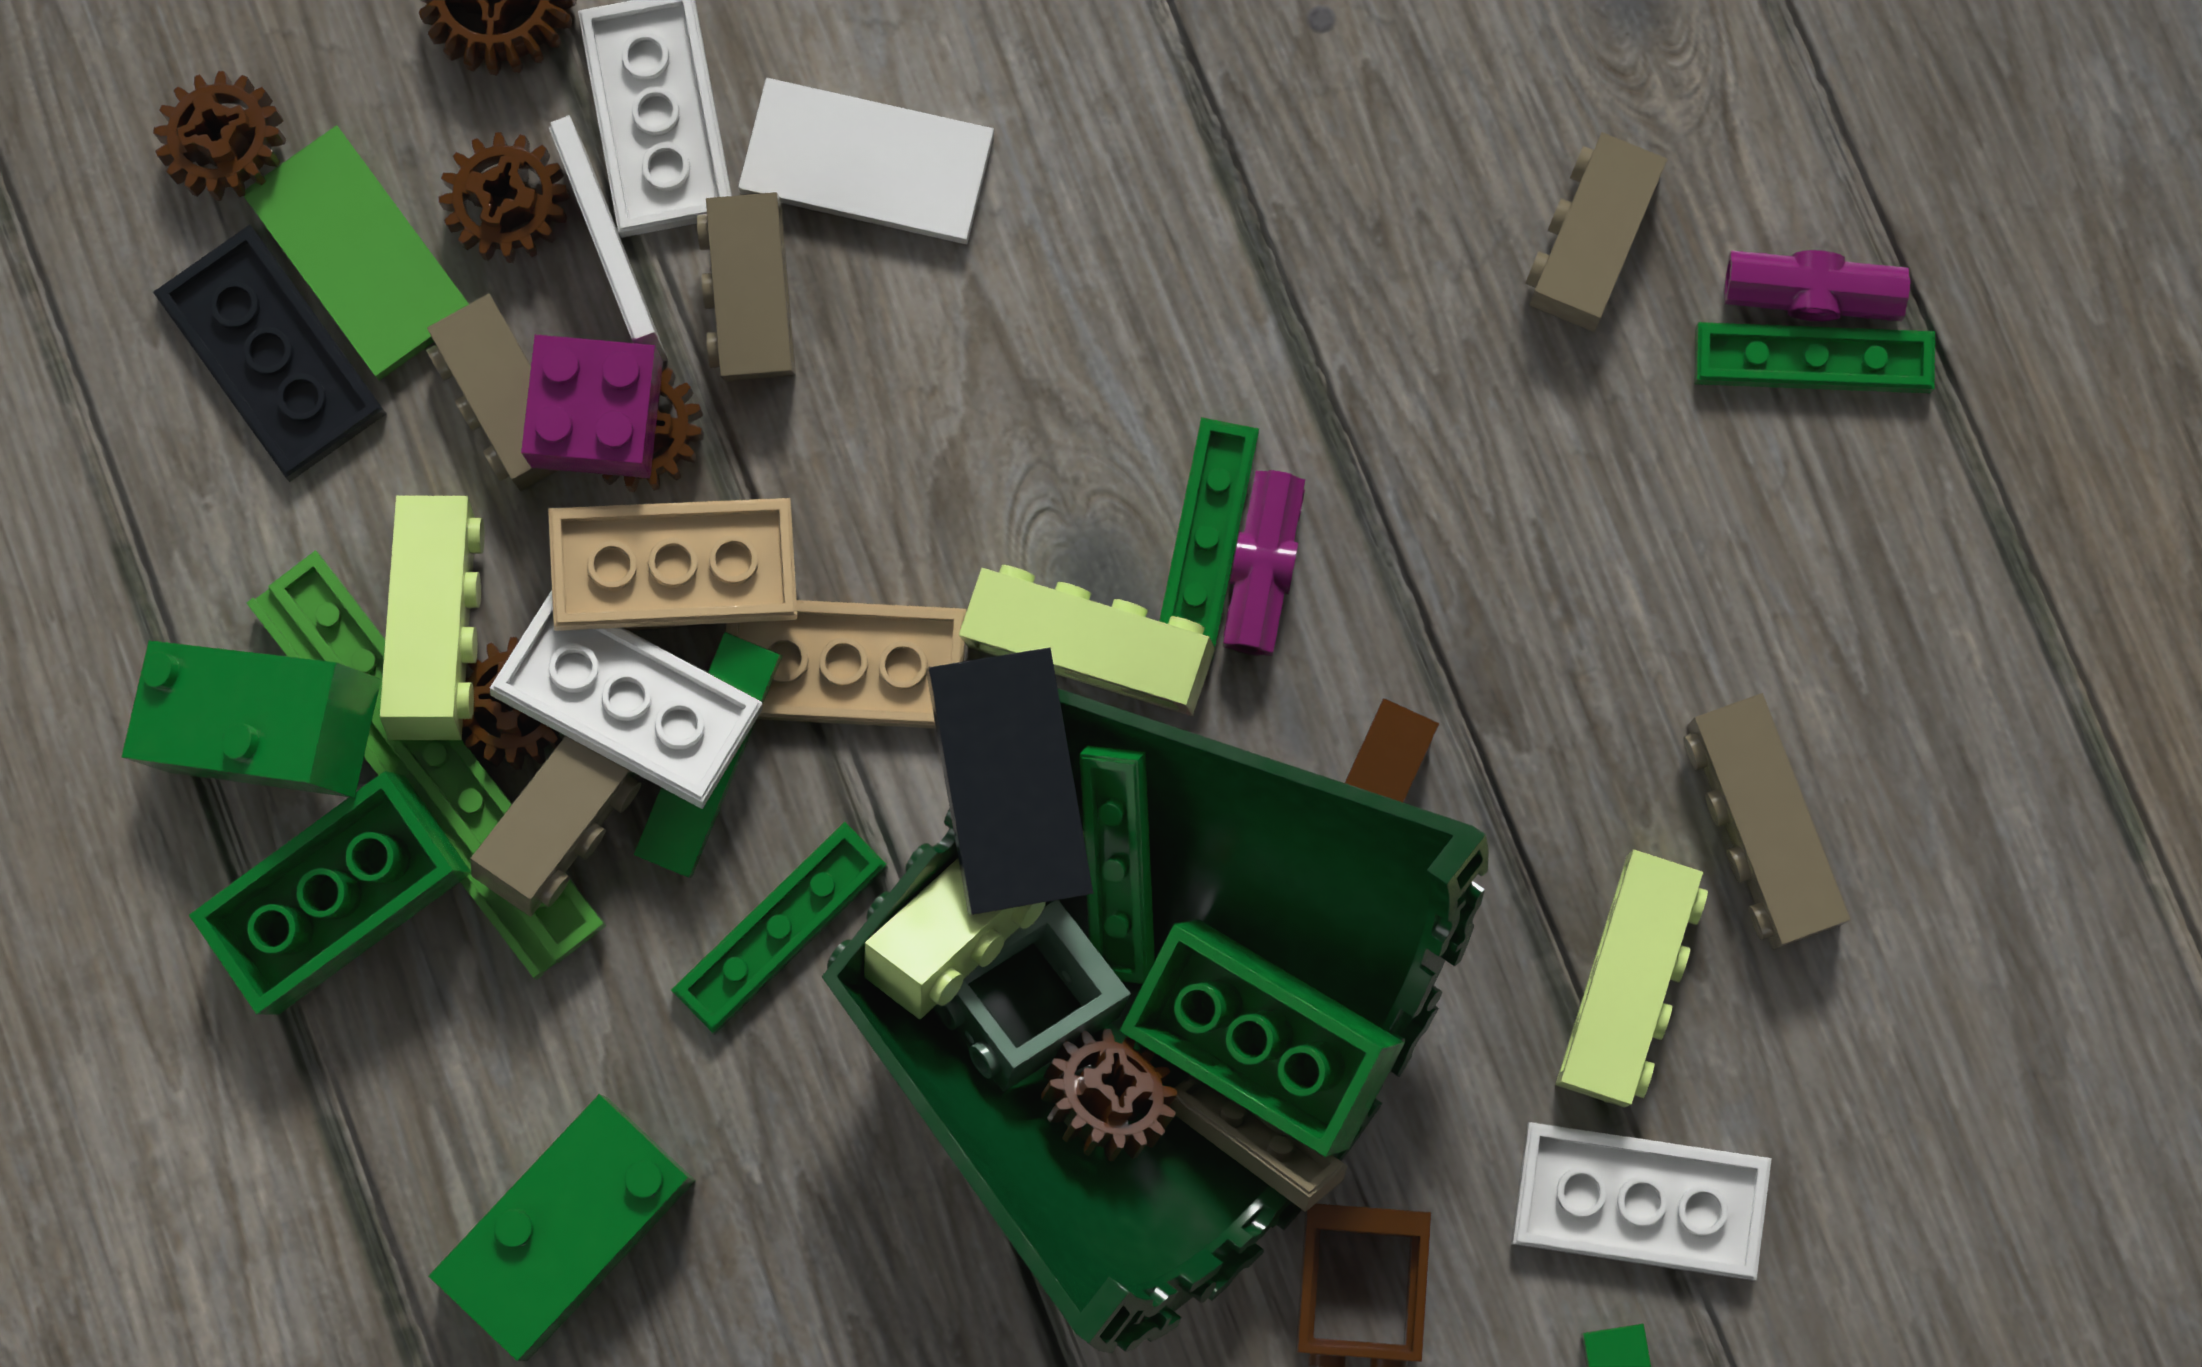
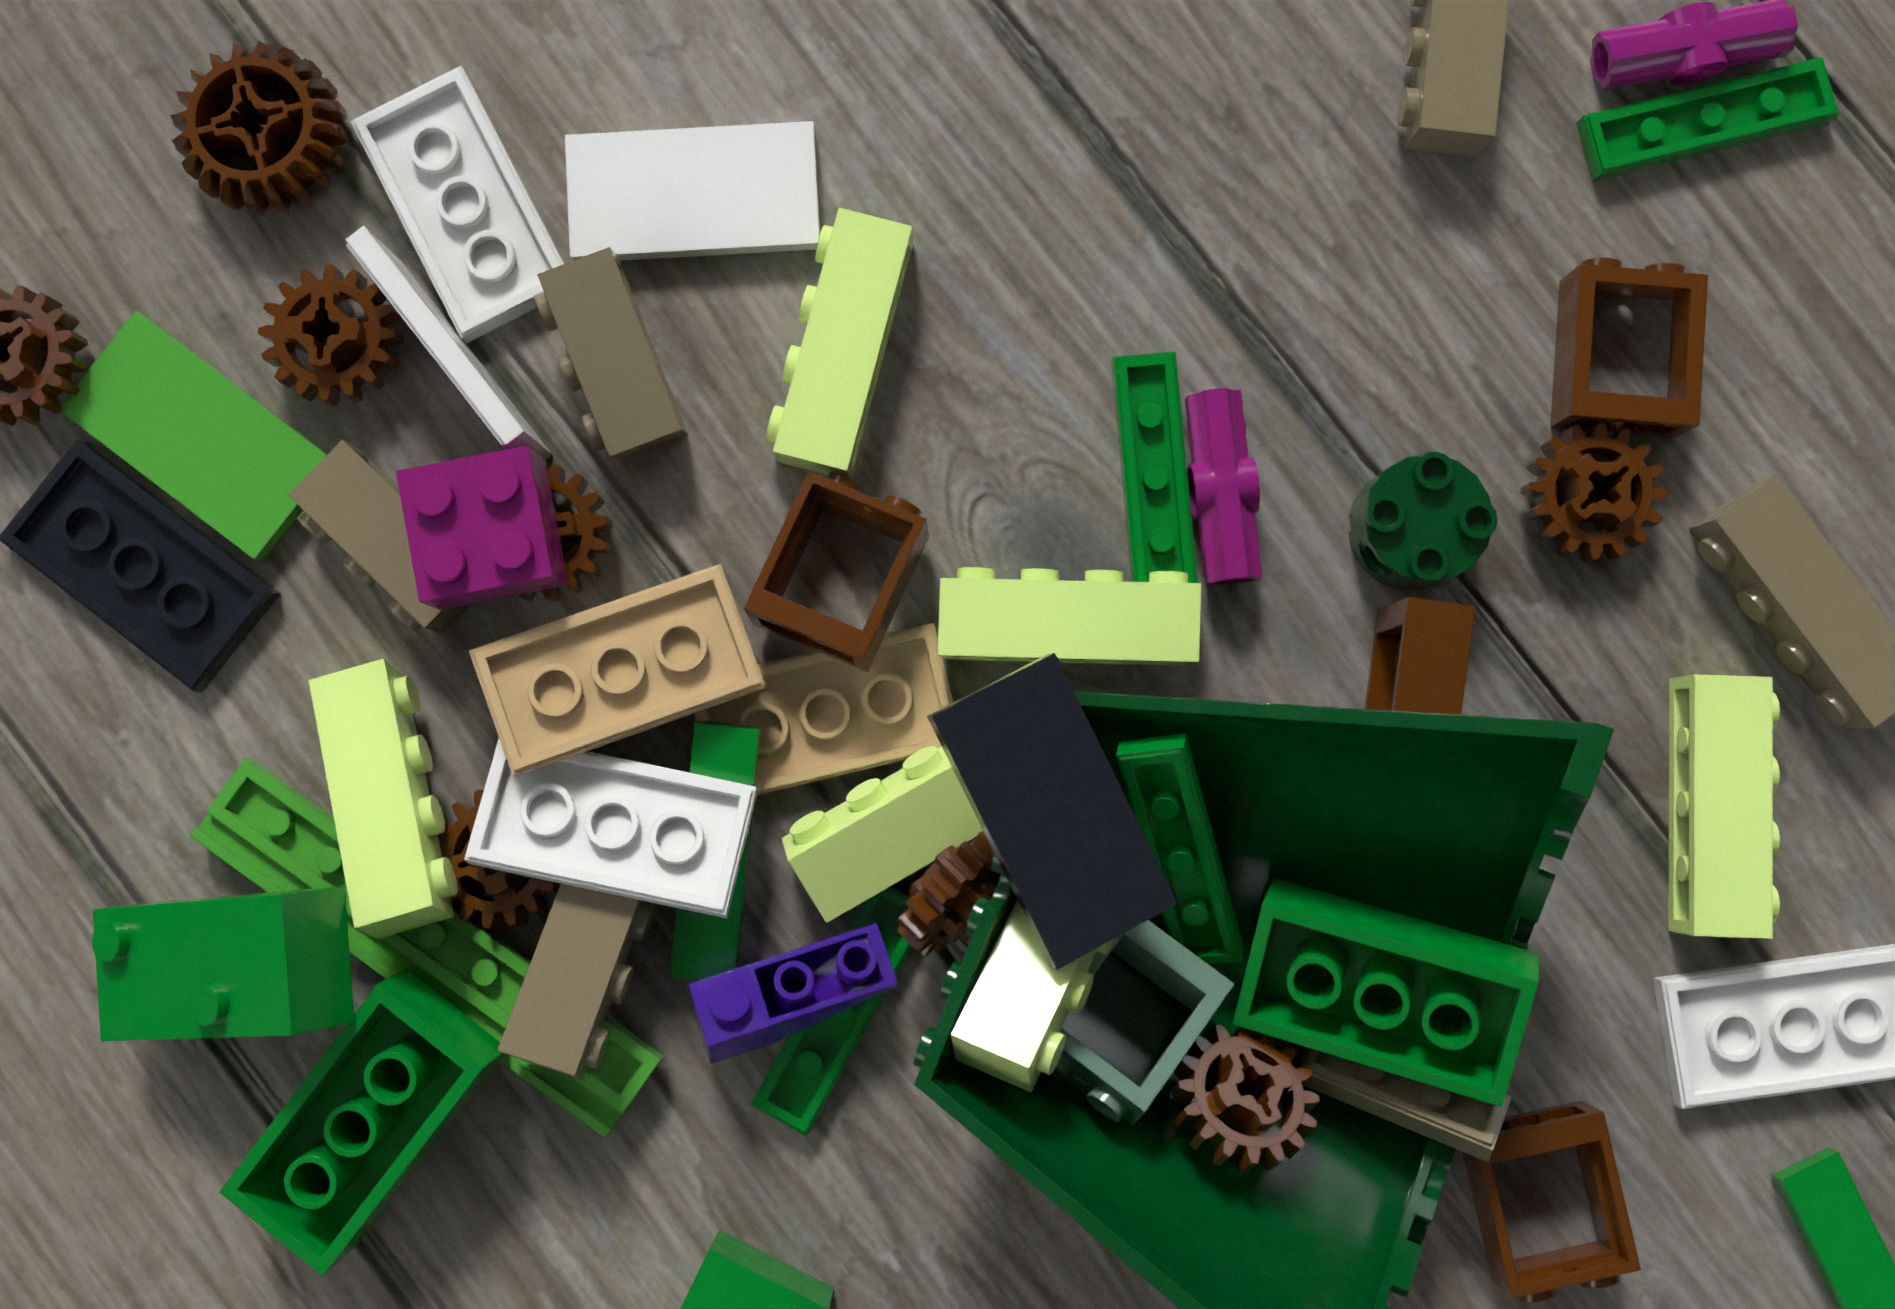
camera: 20 degrees left, 5 degrees up
(734, 895) = (789, 992): none -> dark purple slope
(853, 579) = (813, 629): none -> reddish brown window
(859, 779) = (880, 833): none -> yellowish green brick
(890, 845) = (946, 895): none -> reddish brown gear
(958, 337) = (842, 343): none -> yellowish green brick
(1431, 644) = (1421, 522): none -> dark green brick
(1589, 639) = (1613, 507): none -> reddish brown gear
(1651, 600) = (1641, 414): none -> reddish brown window

